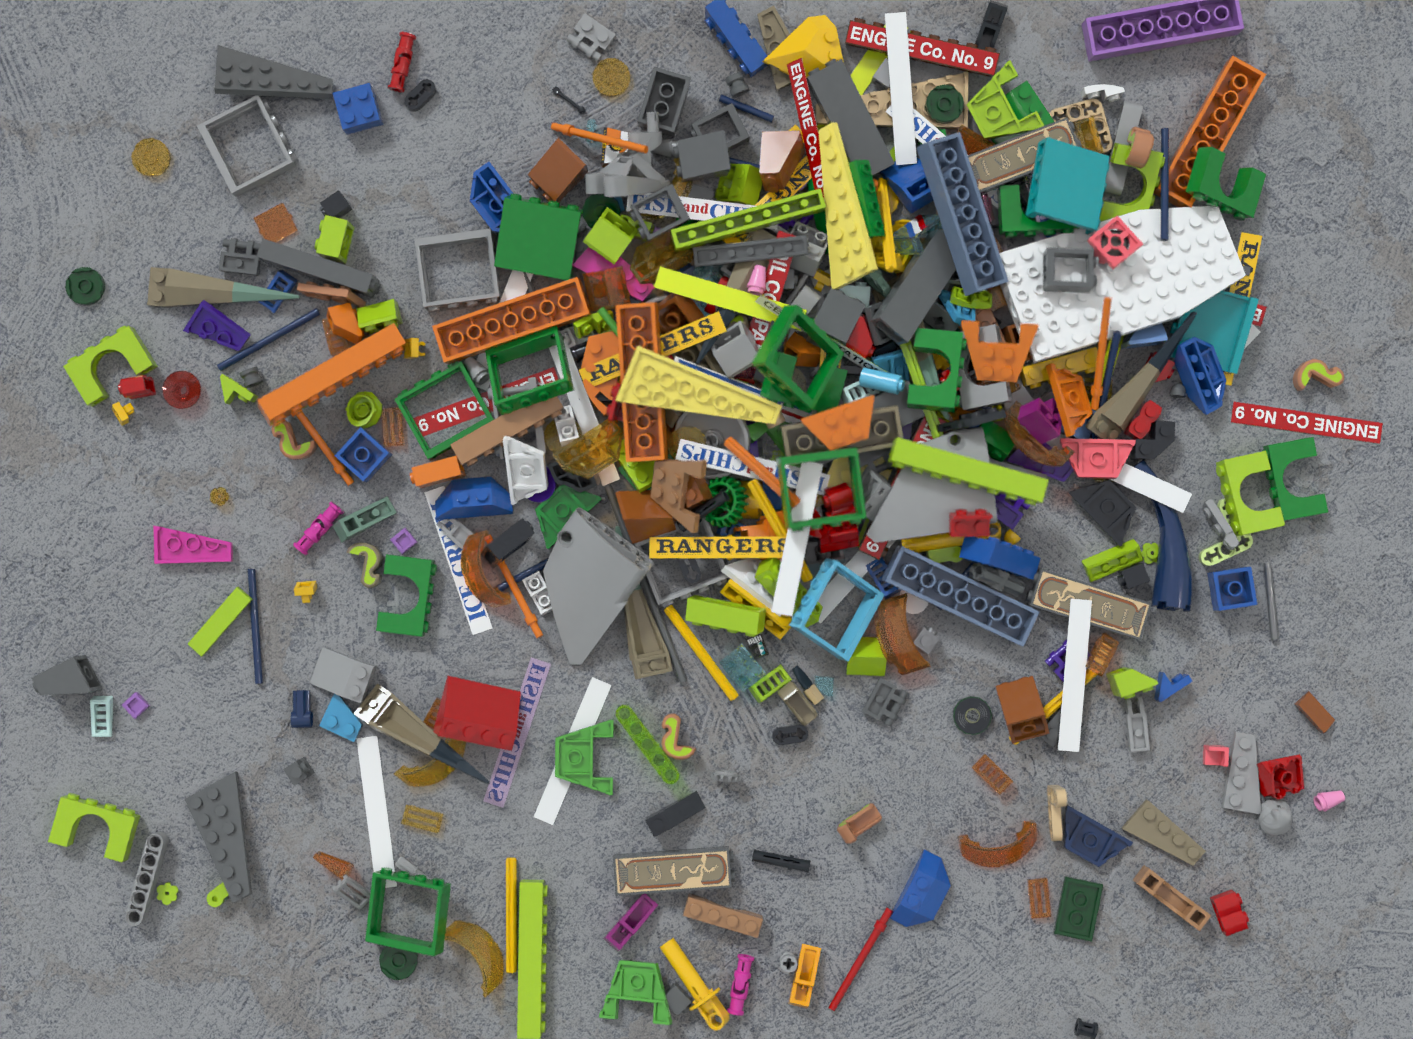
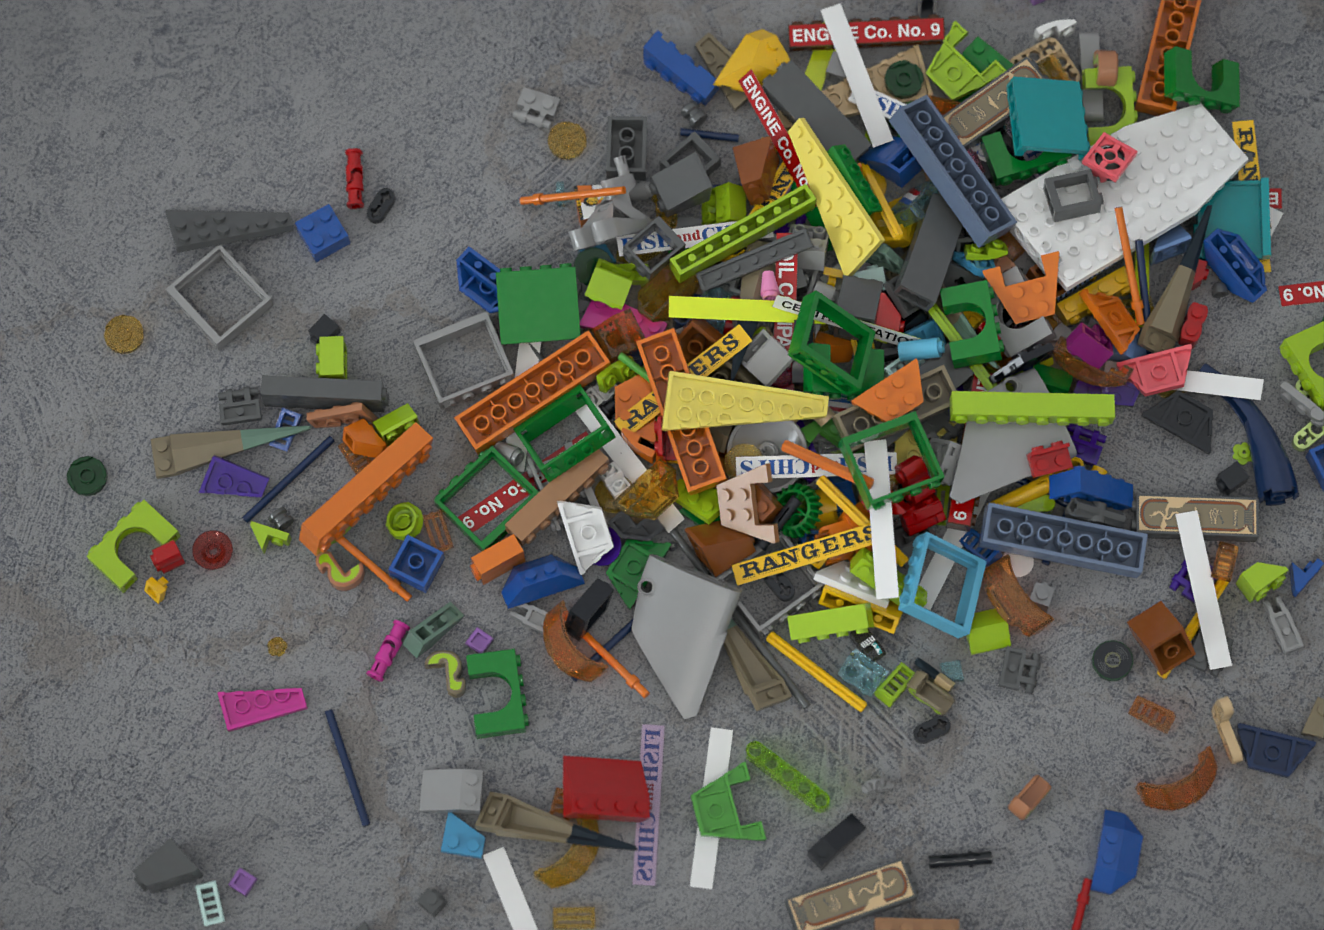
camera: 15 degrees left, 15 degrees down
(220, 621) = (310, 771): lime tile -> none
(275, 223) = (266, 362): clear orange piece -> none
(301, 715) = (419, 842): dark blue piece -> none
(305, 590) = (391, 714): yellow tile -> none
(412, 348) = (438, 448): yellow tile -> none
(474, 609) = (570, 691): white sticker -> none
(538, 591) = (633, 655): white slope -> none
(556, 91) = (515, 167): black hinge -> none
(557, 172) = (539, 239): dark orange slope -> none
(670, 739) = (809, 768): animal -> none
(1037, 881) = (1245, 843): clear orange tile -> none
(1078, 908) = (1282, 827): dark green tile -> none
(1112, 560) = (1206, 470): lime slope -> none
(1161, 436) = (1216, 336): black brick -> none
(1165, 185) = (1142, 97): dark blue piece -> none

